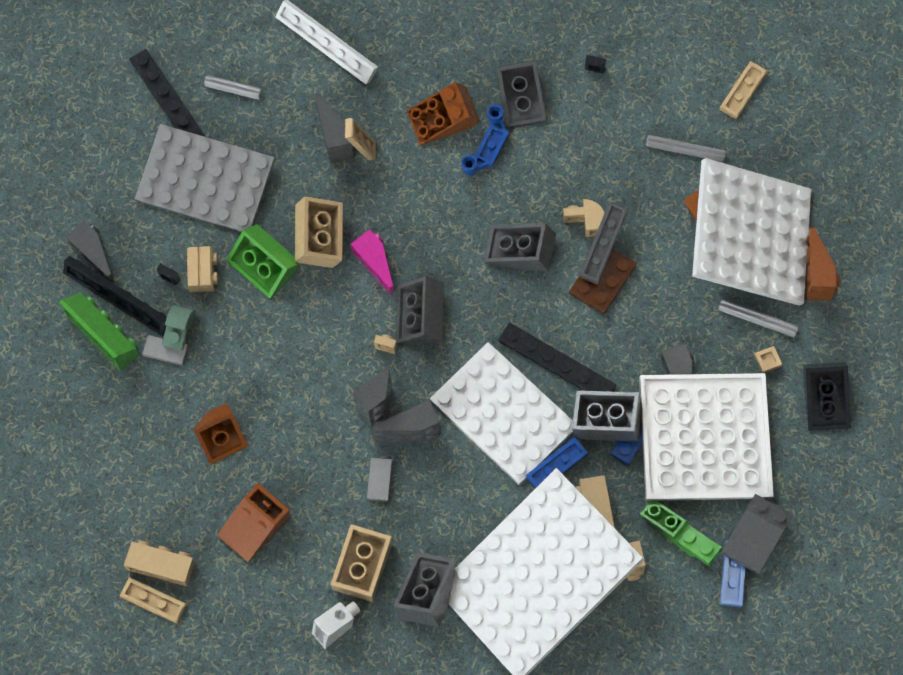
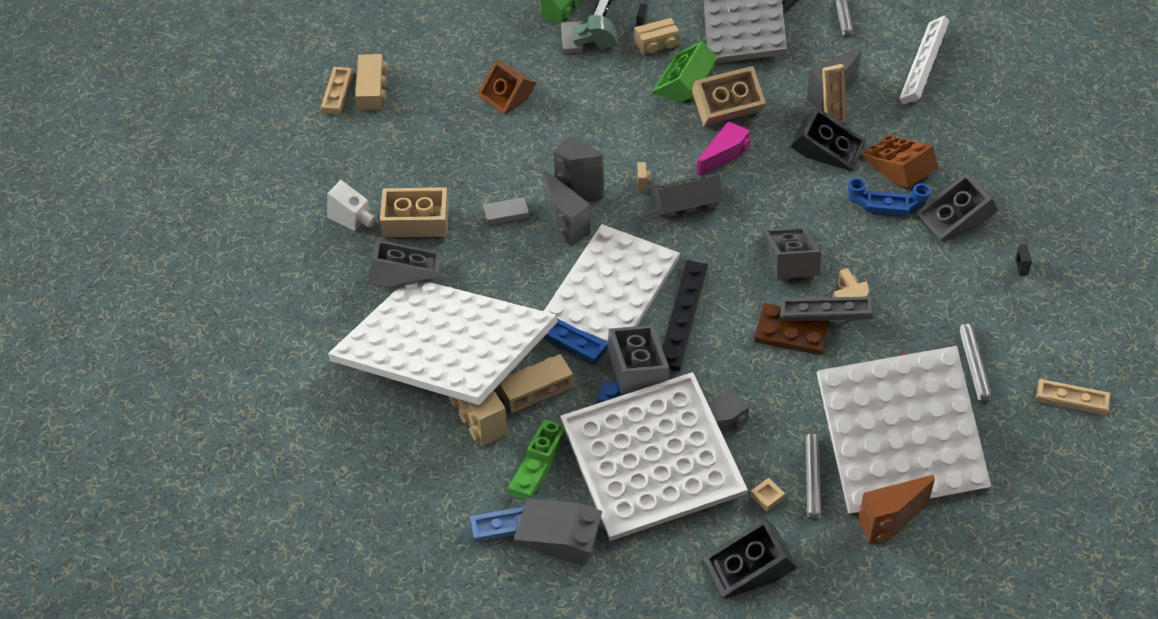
camera: 70 degrees right, 20 degrees down
(254, 522) = (432, 132): dark orange slope -> none
(399, 167) = (828, 141): none -> black slope

